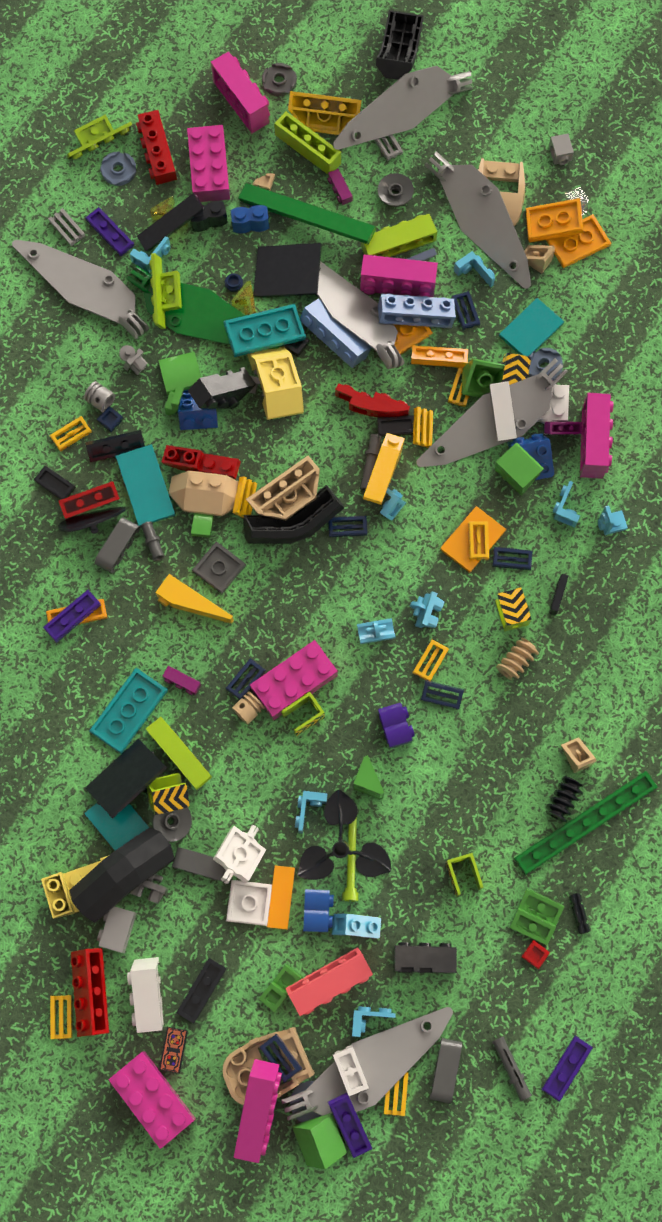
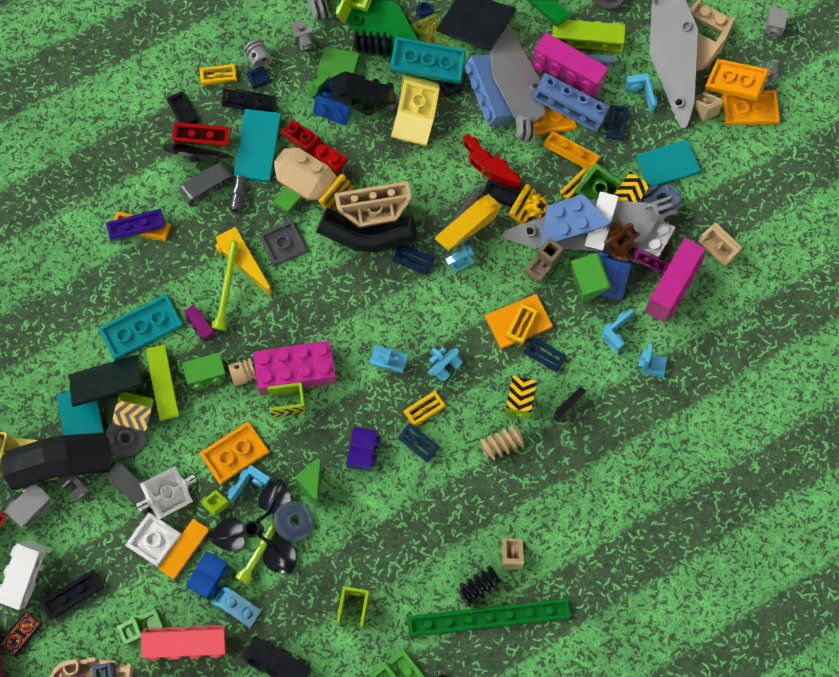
camera: 25 degrees right, 5 degrees down
(201, 670) = (220, 321): none -> lime piece
(203, 336) = (372, 43): none -> black piece
(212, 724) = (204, 371): none -> bright green brick
(238, 676) = (254, 340): dark blue tile -> none
(279, 786) = (234, 453): none -> light orange tile
(287, 841) = (215, 503): none -> lime tile
(359, 826) = (283, 524): none -> sand blue tile
(436, 424) = (536, 206): none -> yellow gear
(469, 472) = (545, 260): none -> dark tan brick
(475, 422) = (572, 219): none -> medium blue wing
(531, 430) = (621, 250): none -> reddish brown piece
(616, 383) = (720, 244): none -> tan hinge

